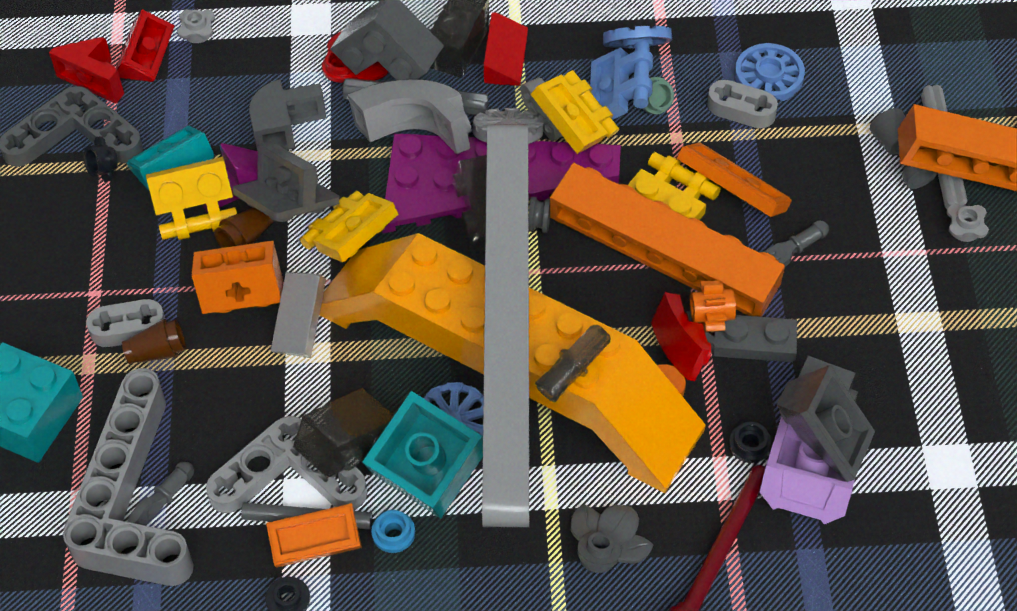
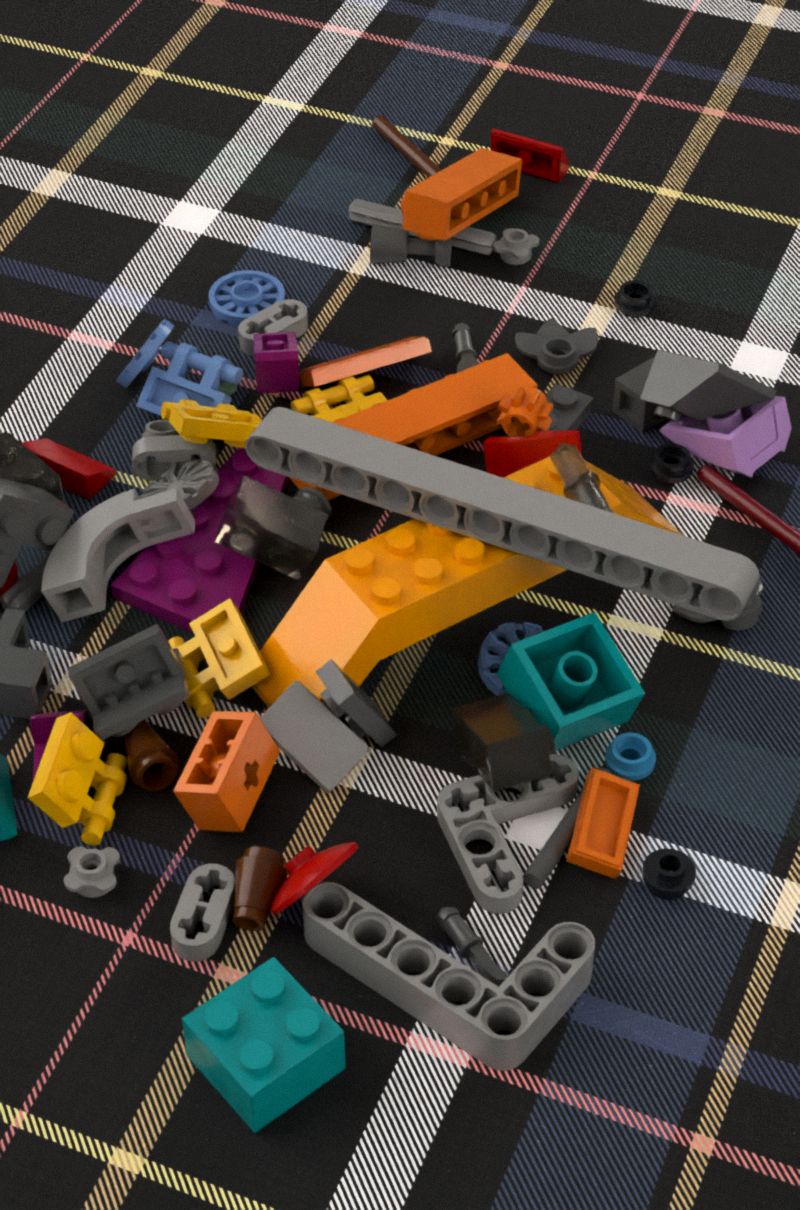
camera: 65 degrees left, 10 degrees down
(135, 253) = (96, 881): none -> light grey plate
(163, 362) = (308, 870): none -> red dish
(333, 324) = (357, 708): none -> dark grey plate
(690, 114) = (276, 362): none -> magenta slope
(856, 301) = (556, 348): none -> dark grey plate
(957, 329) = (635, 299): none -> black plate

